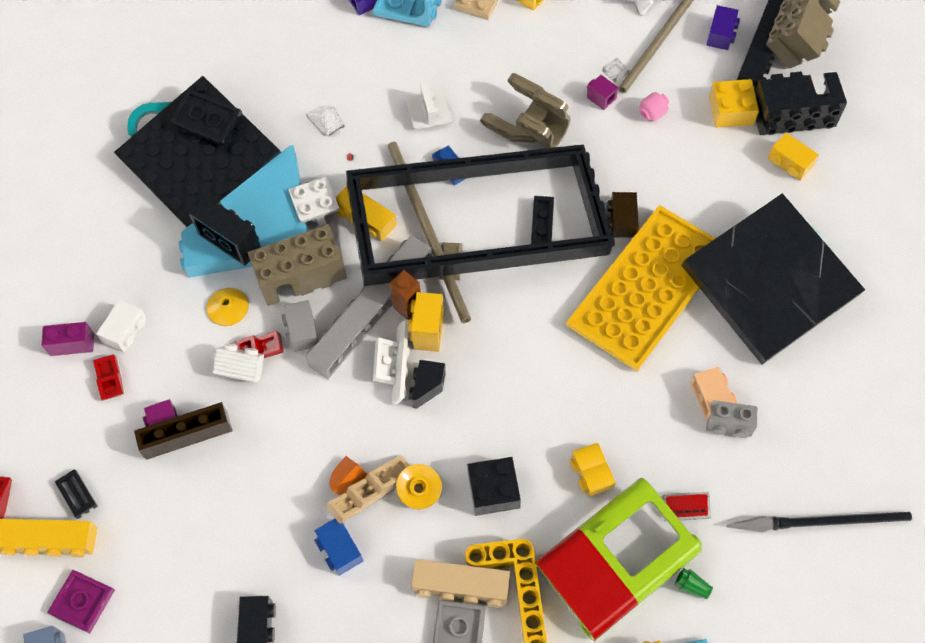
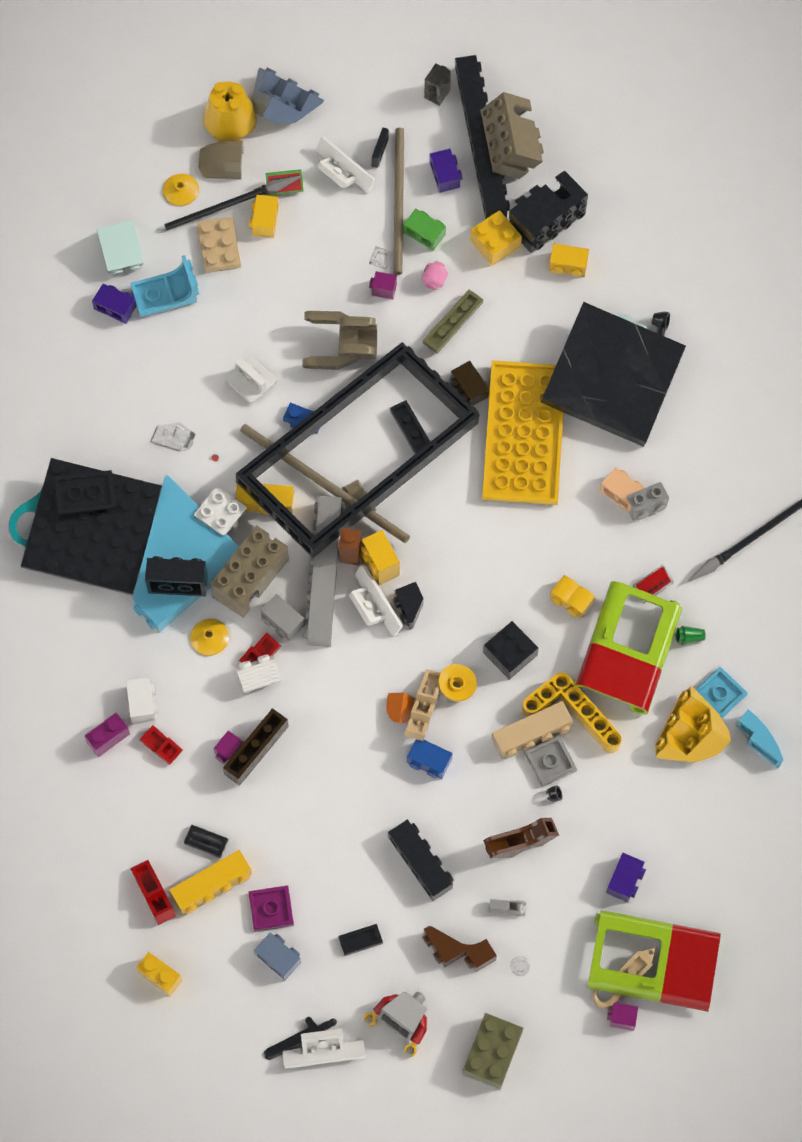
camera: 35 degrees left, 5 degrees up
(645, 153) = (453, 321): none -> olive plate
(671, 65) = (424, 229): none -> bright green brick
(854, 256) = (661, 320): none -> black bar

